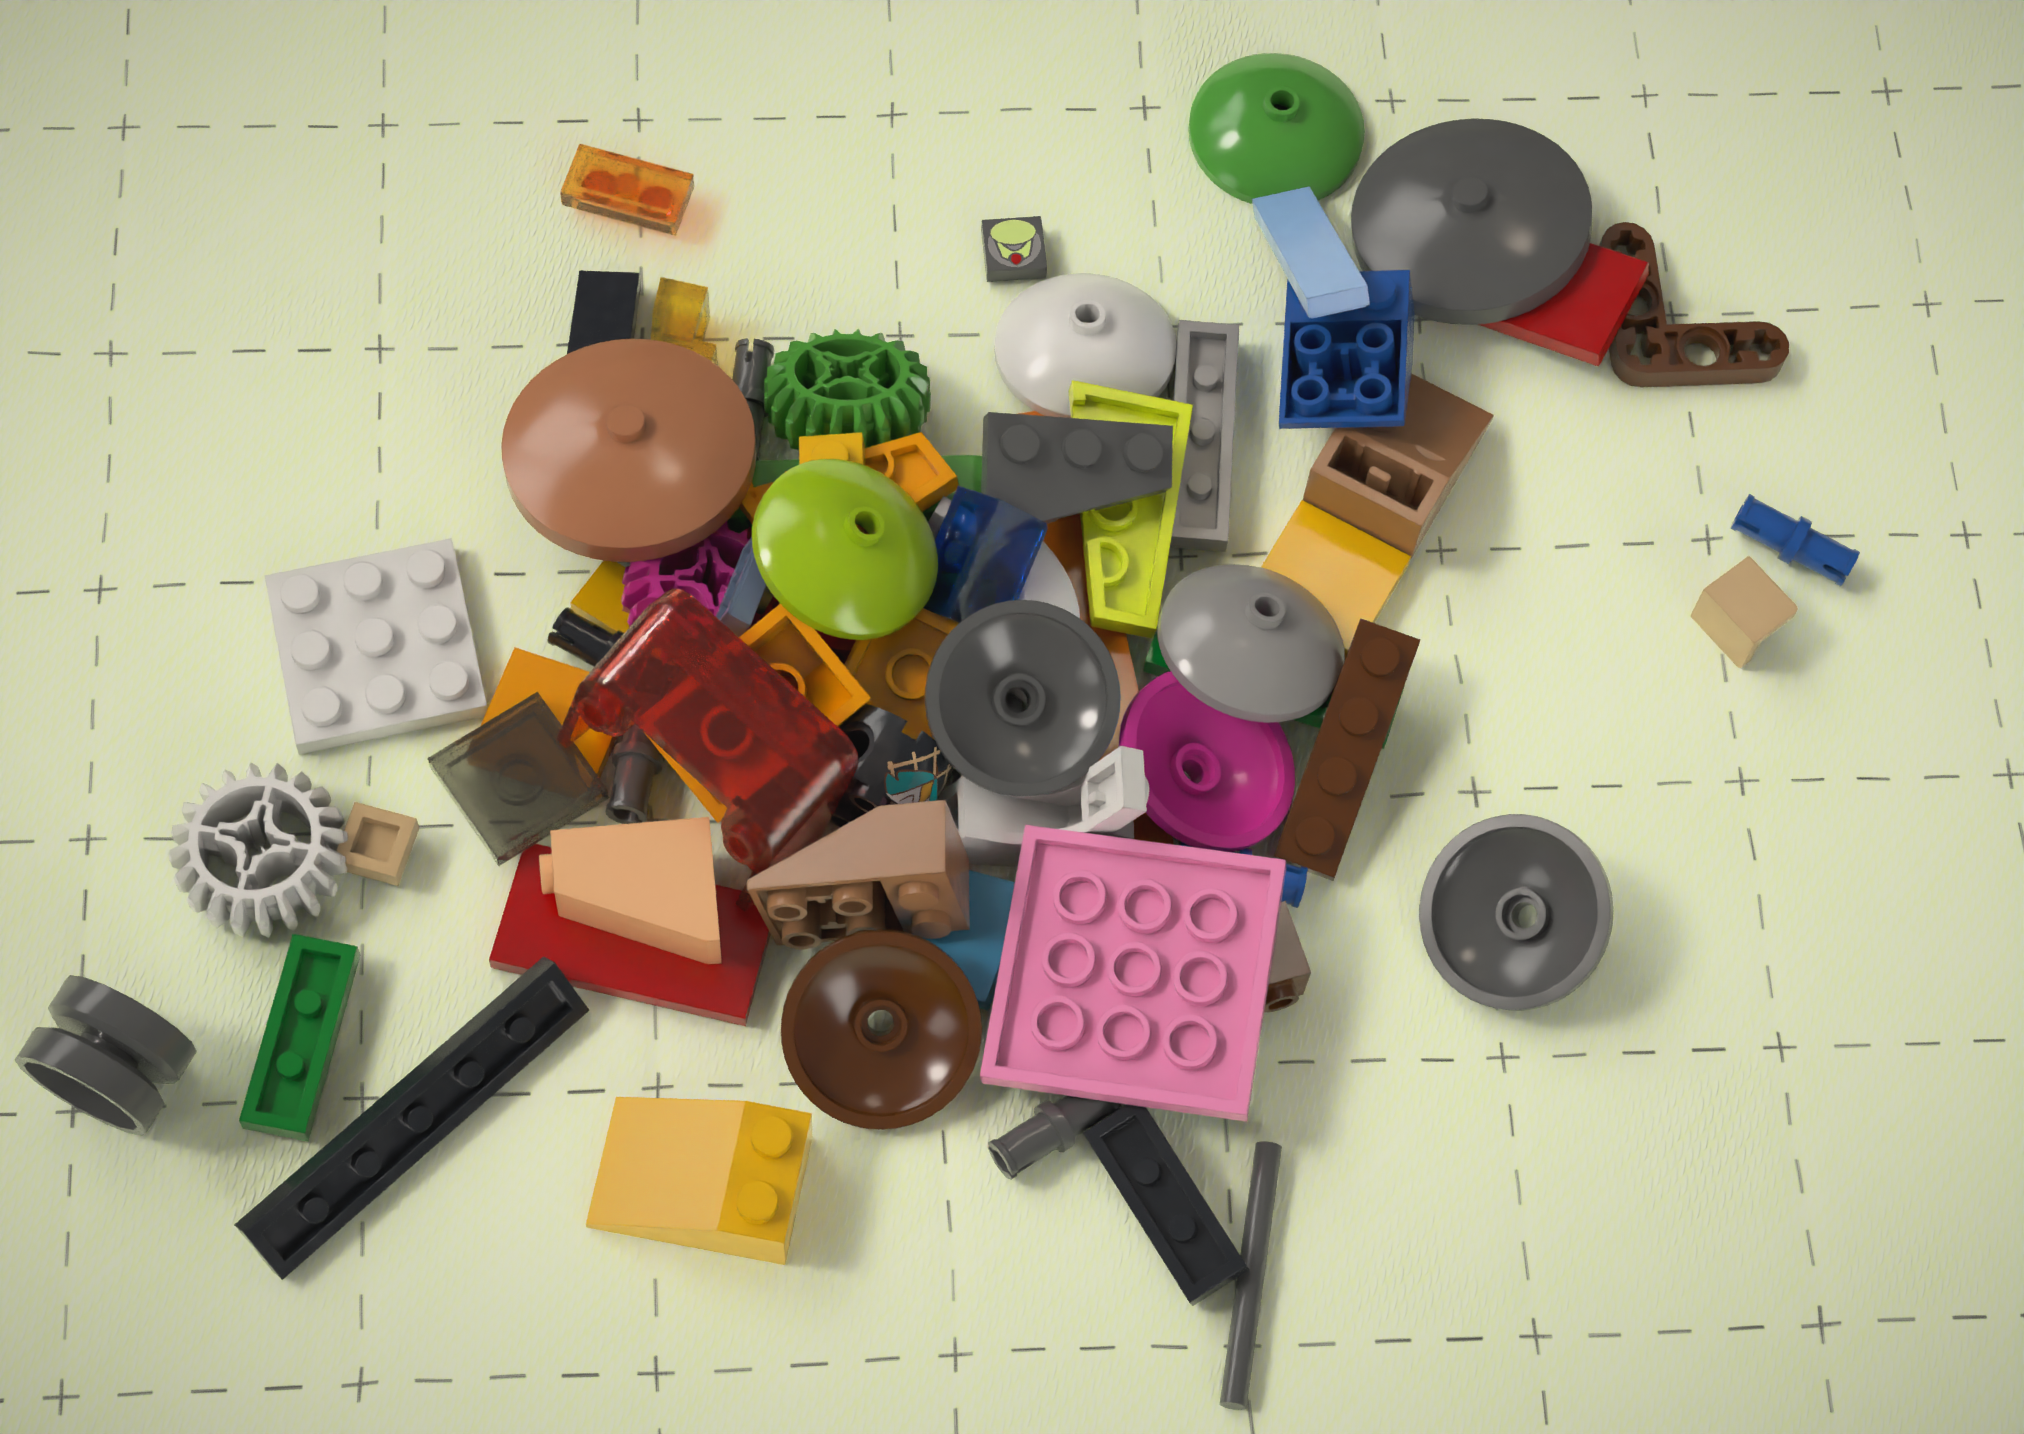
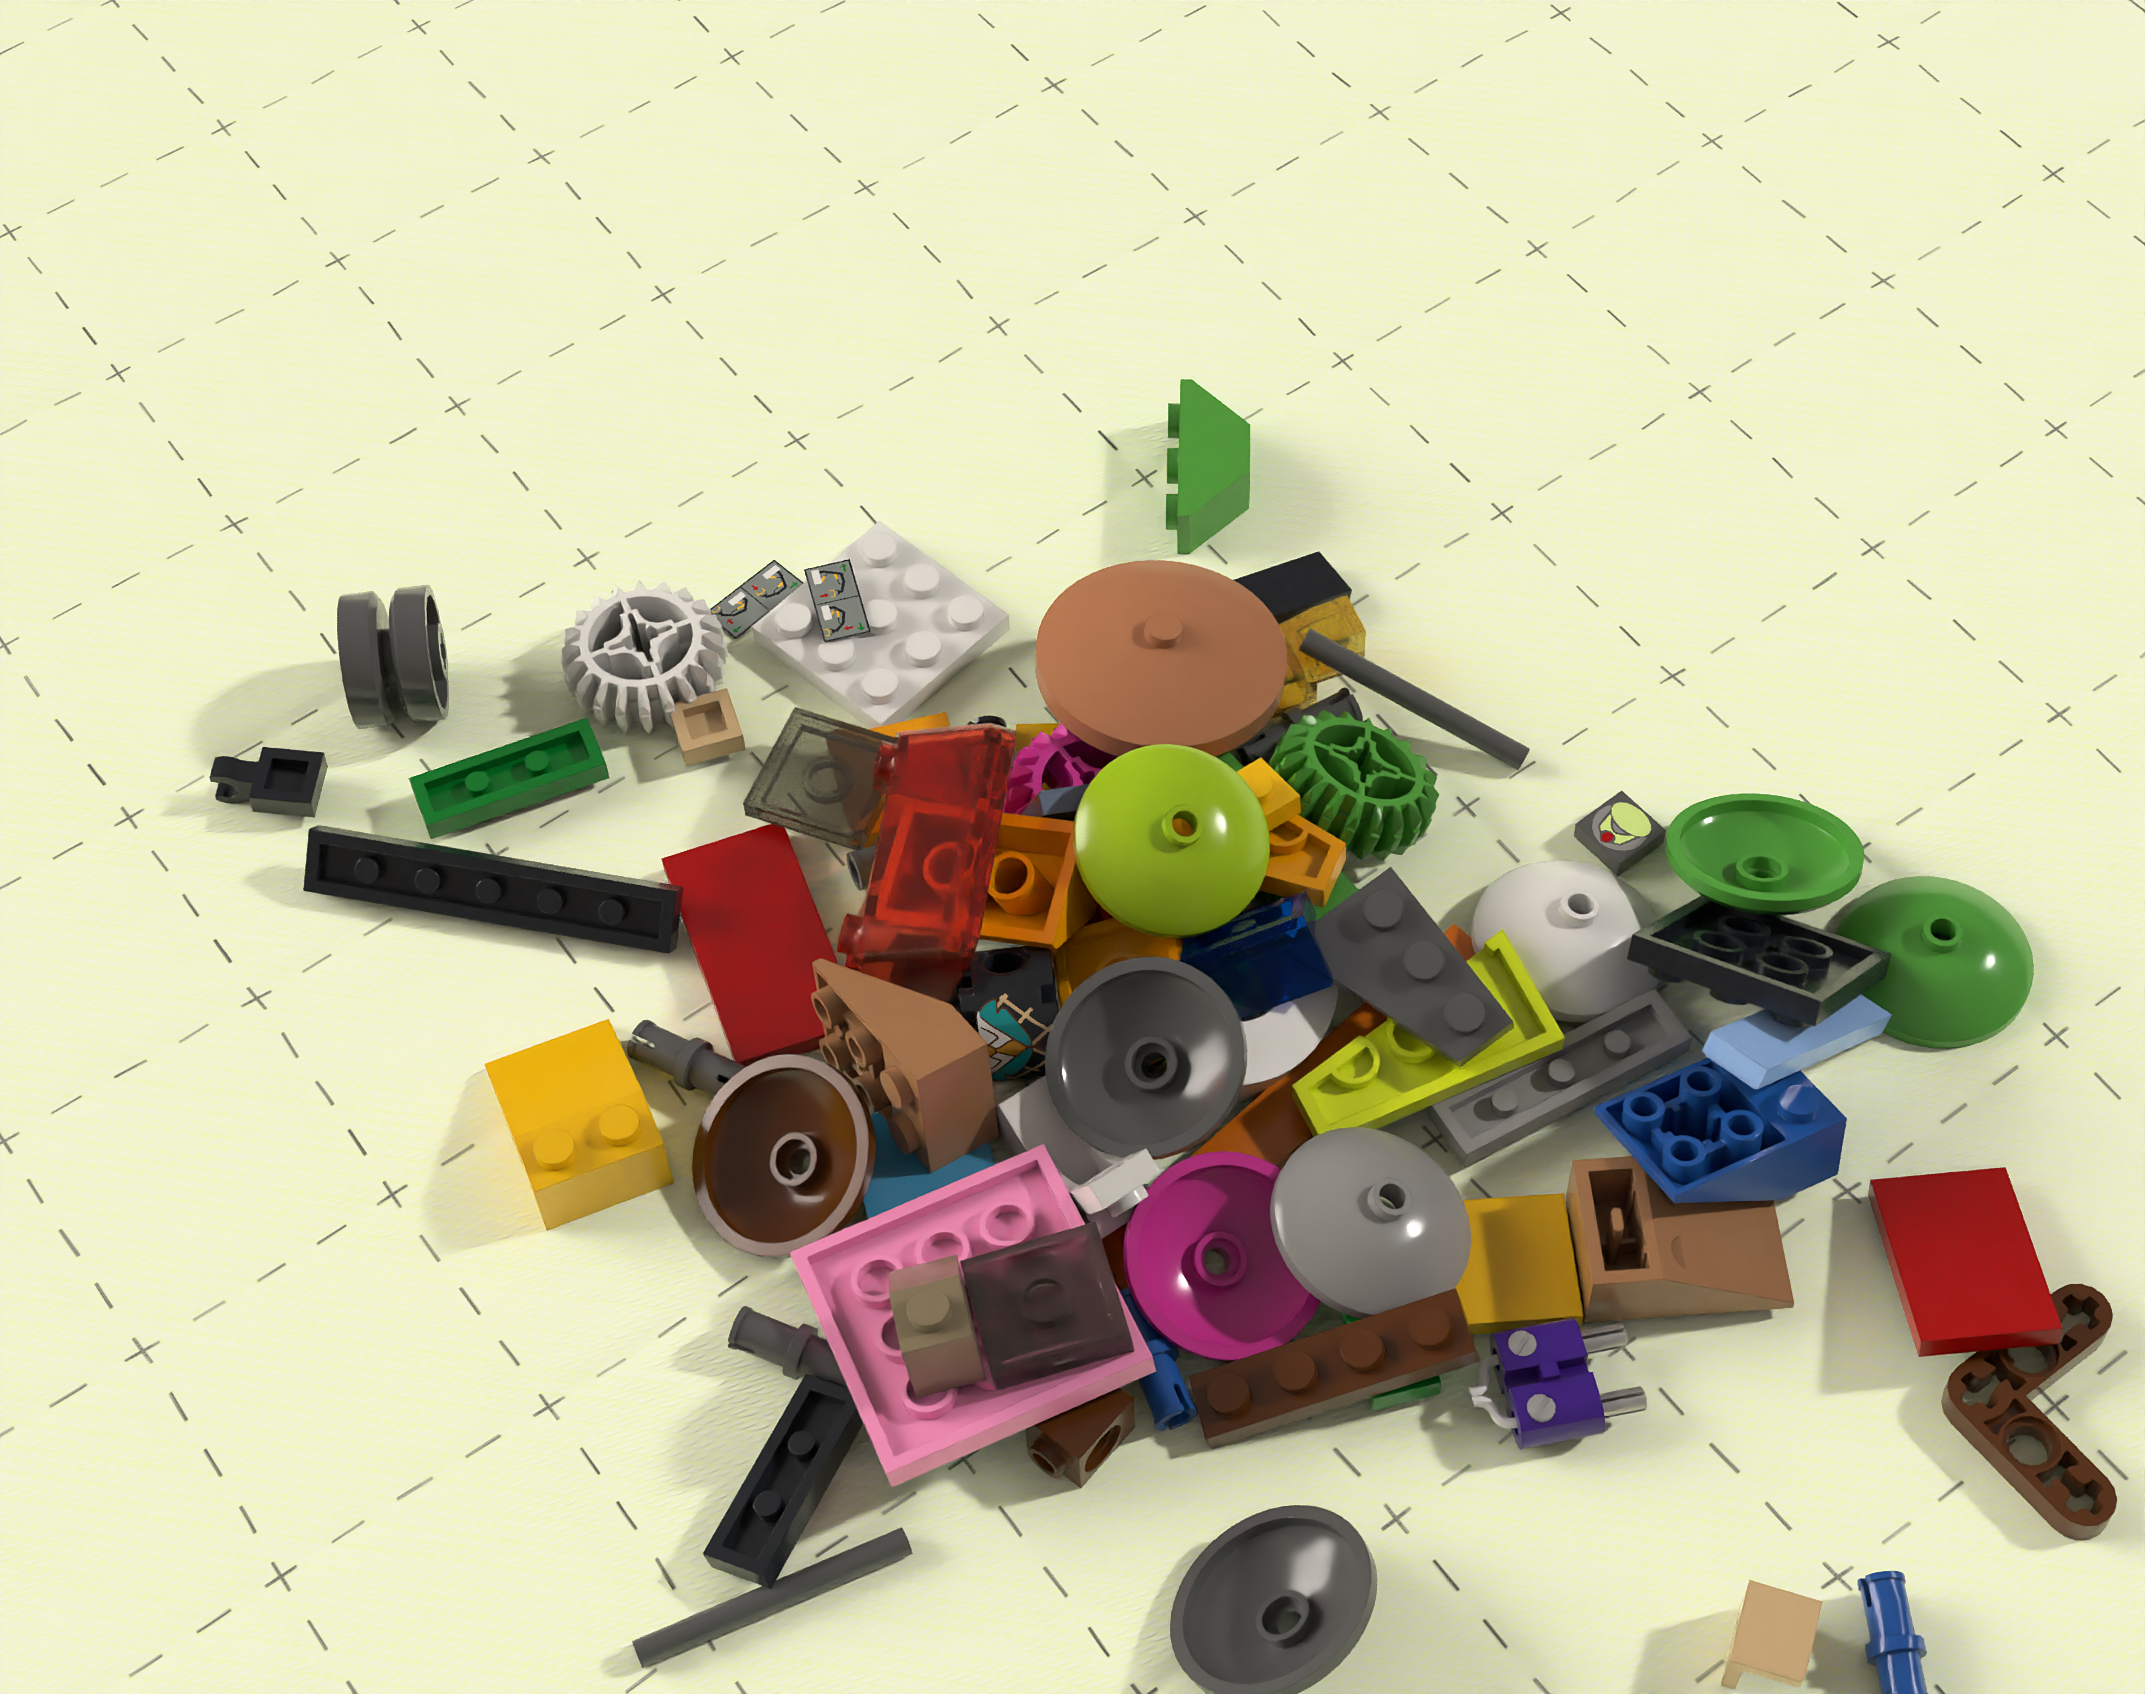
camera: 65 degrees right, 10 degrees down
(143, 1235) = (276, 784): none -> black plate
(253, 725) = (755, 598): none -> light grey sticker
(333, 659) = (837, 600): none -> light grey sticker
(420, 289) = (1207, 466): none -> bright green slope
(627, 189) = (1421, 537): clear orange plate -> none
(639, 883) = (788, 908): light nougat slope -> none
(719, 1053) = (688, 1061): none -> dark grey pin
(790, 300) = (1414, 699): none -> dark grey bar
(1127, 164) = (1764, 853): none -> bright green dish
(1145, 994) = (935, 1326): none -> dark tan slope
(1187, 908) = (1046, 1306): none -> clear smoke tile
(1228, 230) = (1759, 960): none -> black plate
(1453, 615) = (1549, 1383): none -> dark purple piece
(1477, 215) = (1978, 1163): dark grey dish -> none

